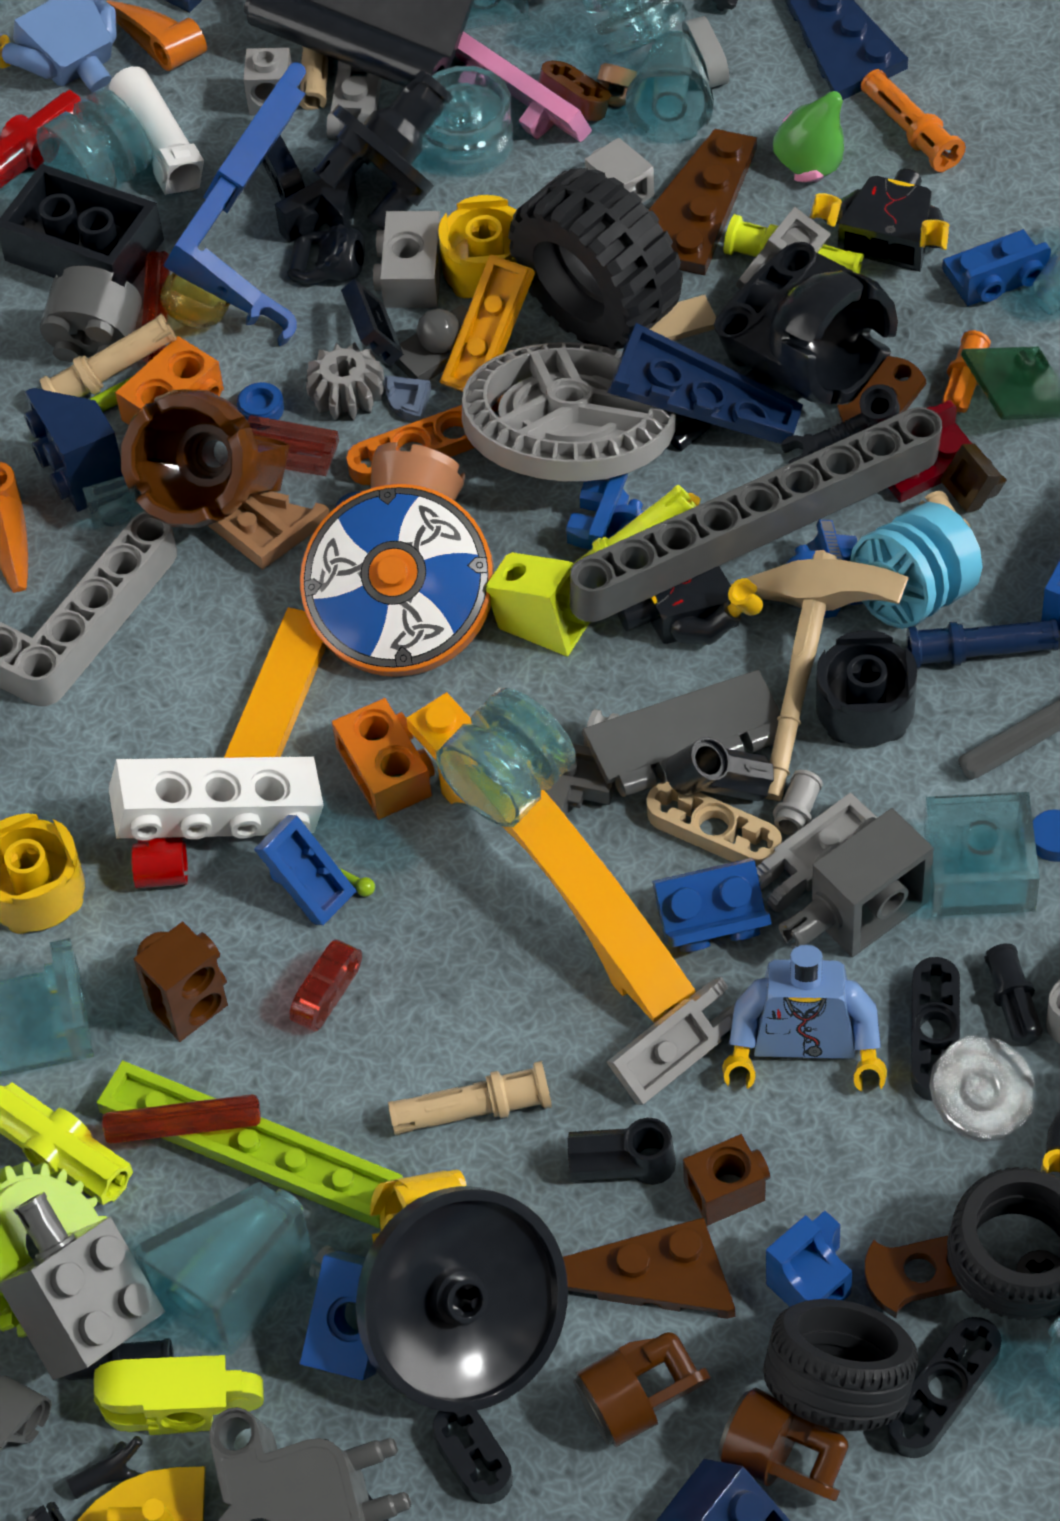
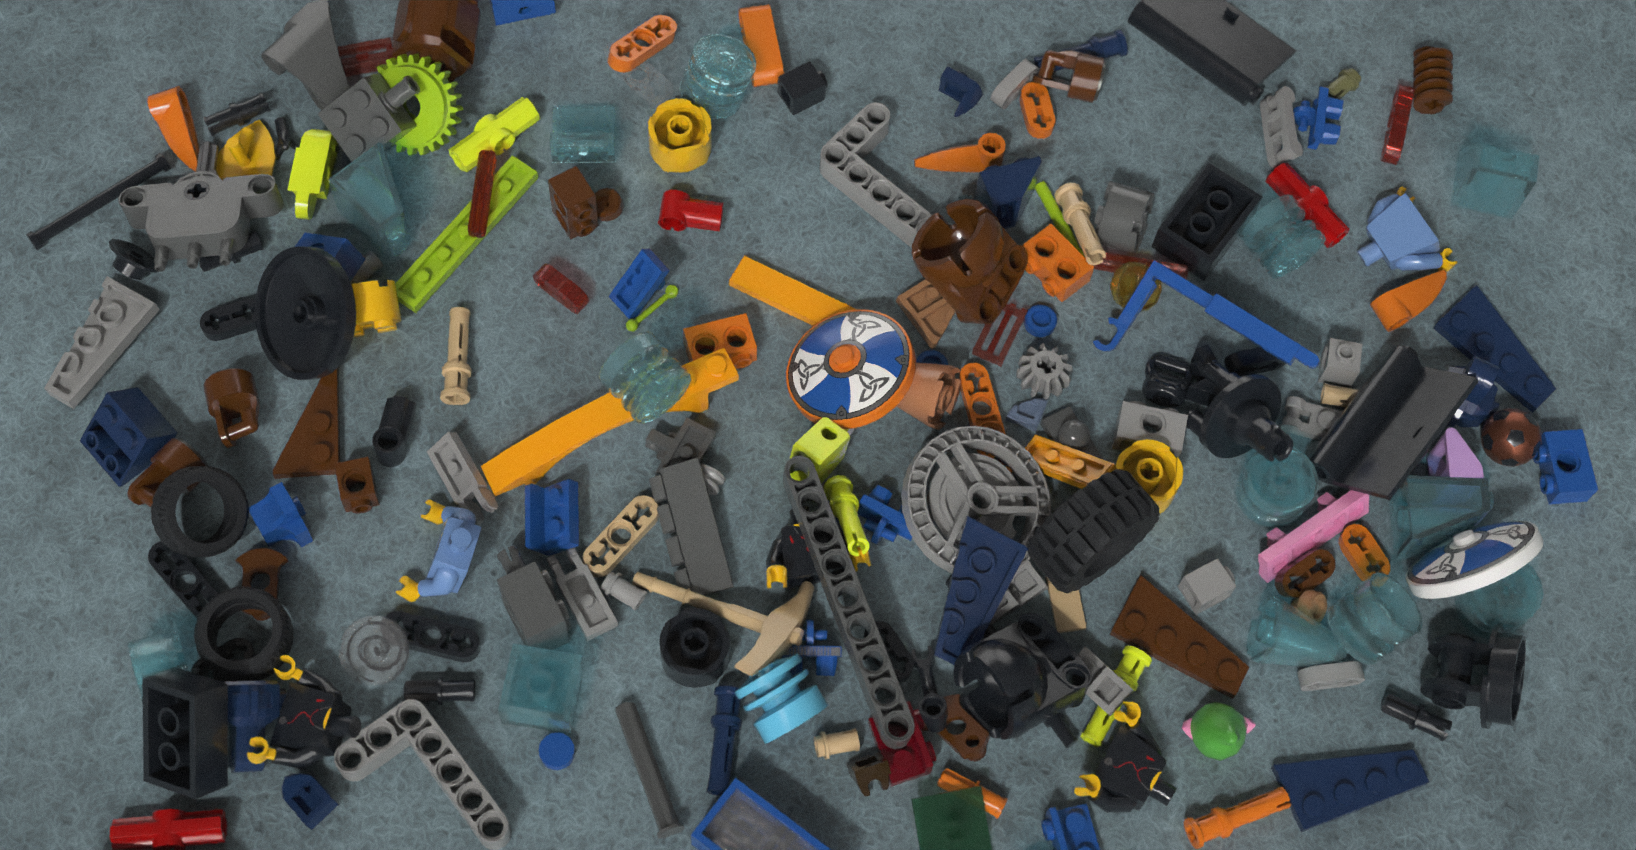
camera: 90 degrees right, 10 degrees up
(175, 160) = (1304, 285): white piece -> none
(212, 796) = (705, 187): white brick -> none
(372, 322) = (1090, 388): black tile -> none
(530, 42) = (1366, 552): none -> orange beam
(718, 770) = (648, 542): black piece -> none

